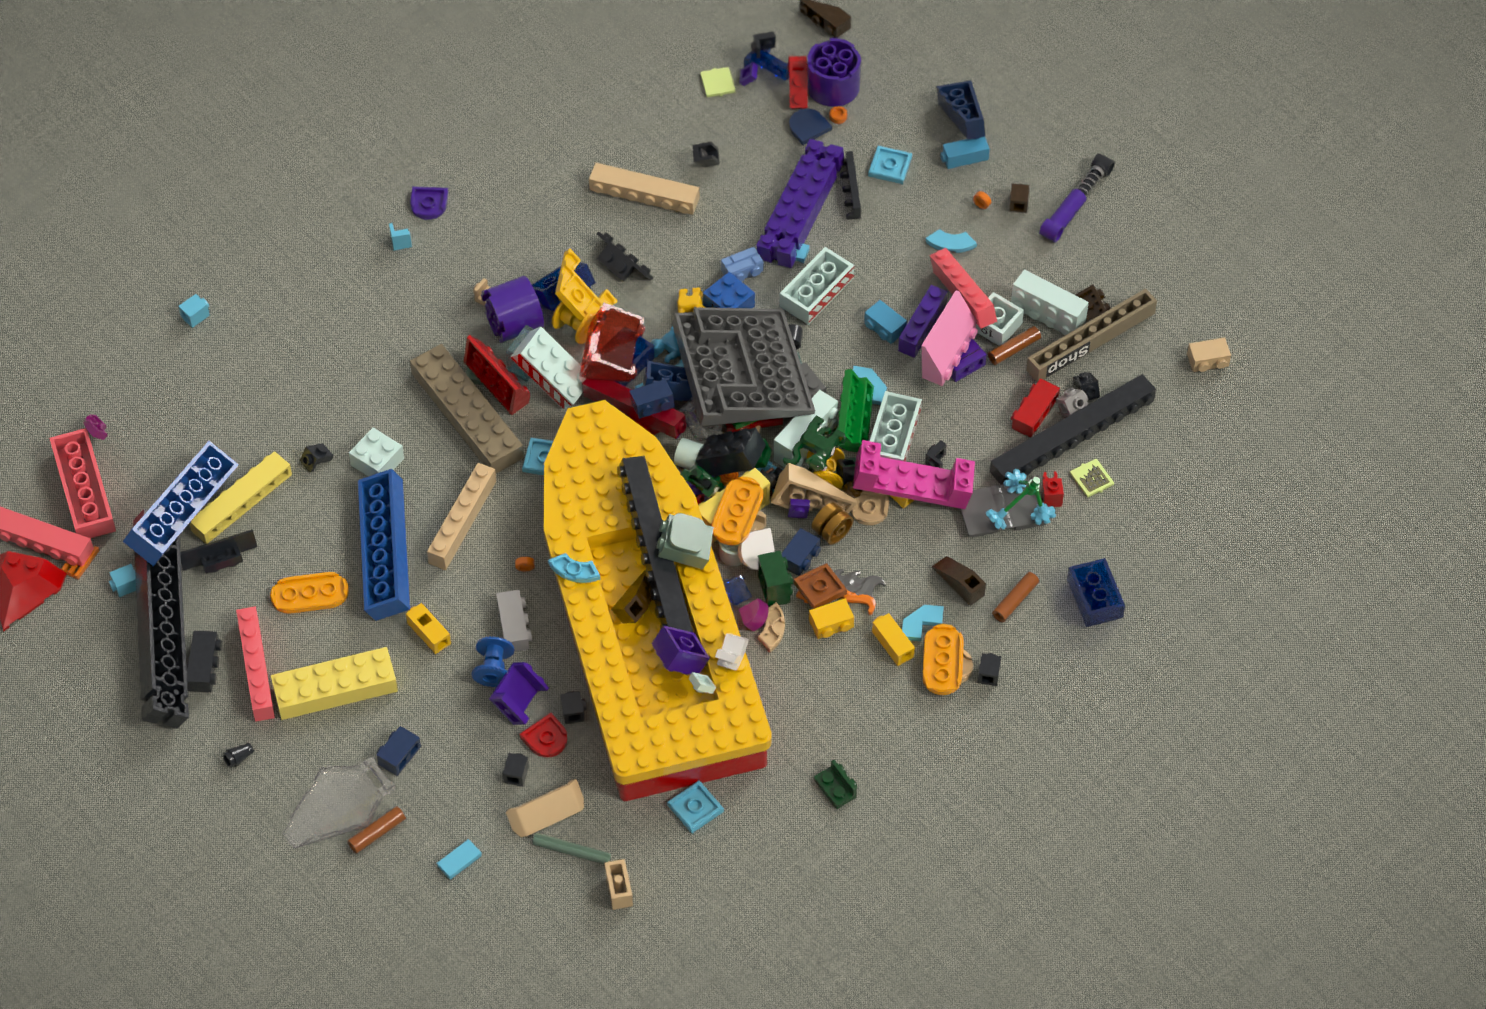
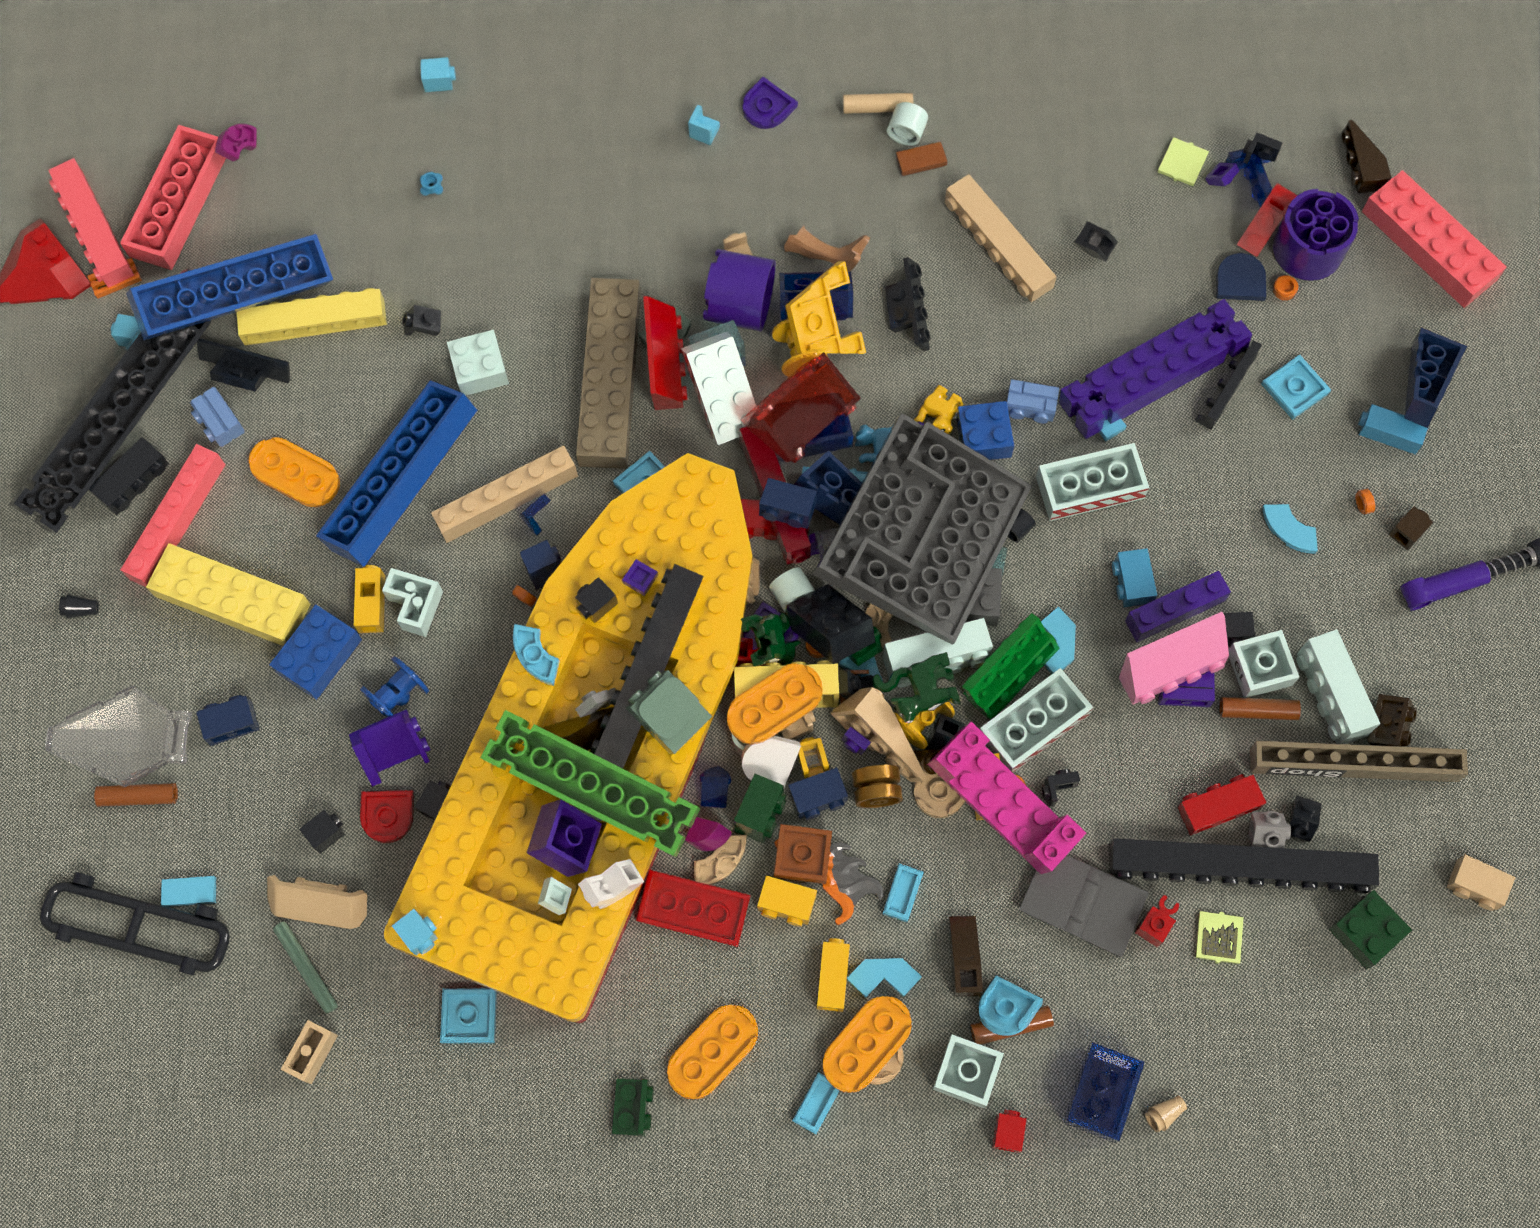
camera: 40 degrees right, 15 degrees up
(230, 592) = (217, 417): none -> medium blue brick
(245, 372) = (428, 179): none -> dark azure plate
(420, 677) = (316, 652): none -> blue brick
(457, 604) = (418, 597): none -> light aqua brick
(483, 863) = (82, 886): none -> black bar
(487, 519) = (527, 514): none -> clear blue tile
(500, 158) = (874, 102): none -> tan piece
(513, 619) = (459, 654): light grey brick -> none
(522, 536) = (540, 562): none -> dark blue brick
(531, 158) = (907, 123): none -> light aqua piece
(532, 263) = (813, 248): none -> medium nougat animal
(555, 174) = (921, 158): none -> dark orange tile
(586, 515) = (595, 600): none -> black brick
(602, 487) = (640, 577): none -> dark purple plate
(632, 571) = (594, 701): none -> light grey plate
(638, 753) = (416, 932): none -> medium azure brick
(673, 605) = (590, 783): none -> bright green brick
(781, 534) = (812, 757): none -> yellow window
(784, 659) = (693, 908): none -> red tile
(857, 727) = (712, 1051): none -> light orange tile
(894, 573) = (903, 893): none -> medium azure tile
(903, 36) = (1433, 239): none -> coral brick
(940, 712) = (816, 1104): none -> medium azure tile
(956, 278) = (1249, 603): coral brick -> none
(989, 669) = (909, 1094): black brick -> none
(1005, 587) = (1007, 1008): none -> medium azure tile
(1012, 632) = (968, 1071): none -> light aqua brick
(1015, 483) = (1119, 946): medium azure plant -> none
(1061, 649) = (1009, 1131): none -> red brick
(1137, 584) = (1165, 1113): none -> tan cone
(1170, 416) = (1370, 929): none -> dark green brick

